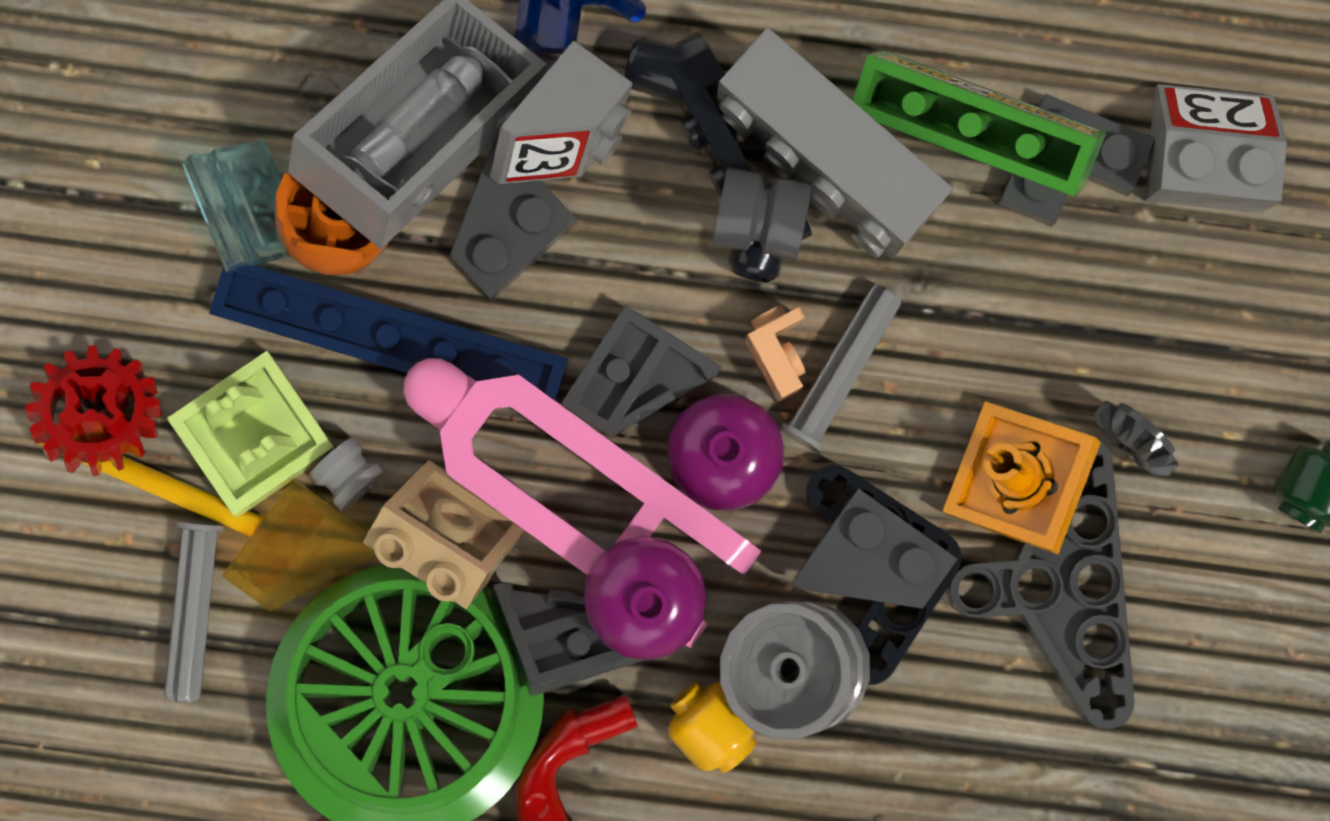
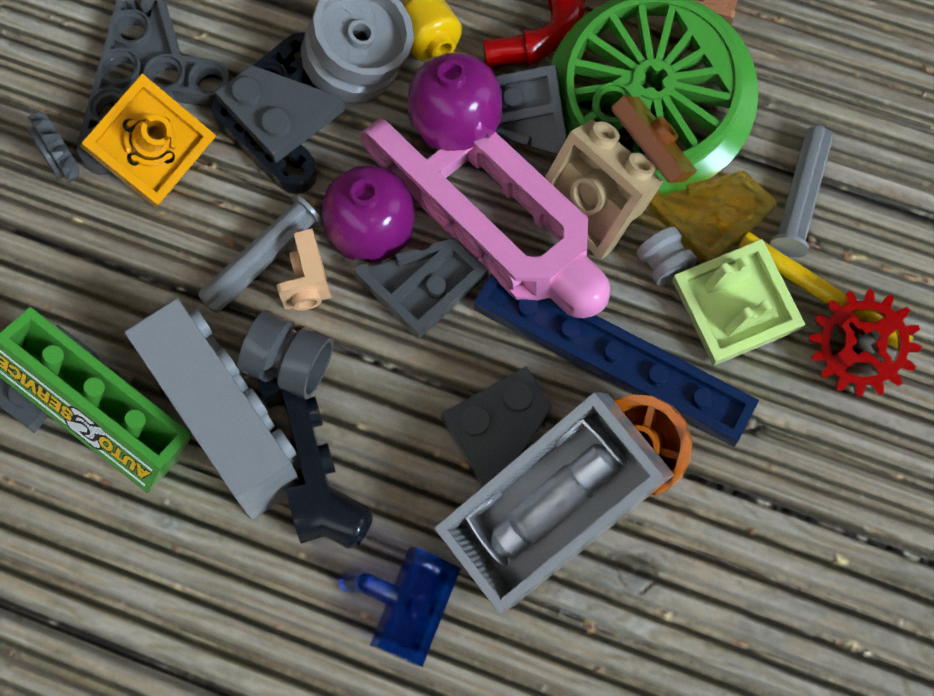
camera: 170 degrees left, 15 degrees down
(237, 201) = (719, 483): clear light blue plate -> none
(383, 596) = (655, 138): none -> dark orange plate
(564, 121) = (428, 478): light grey slope -> none

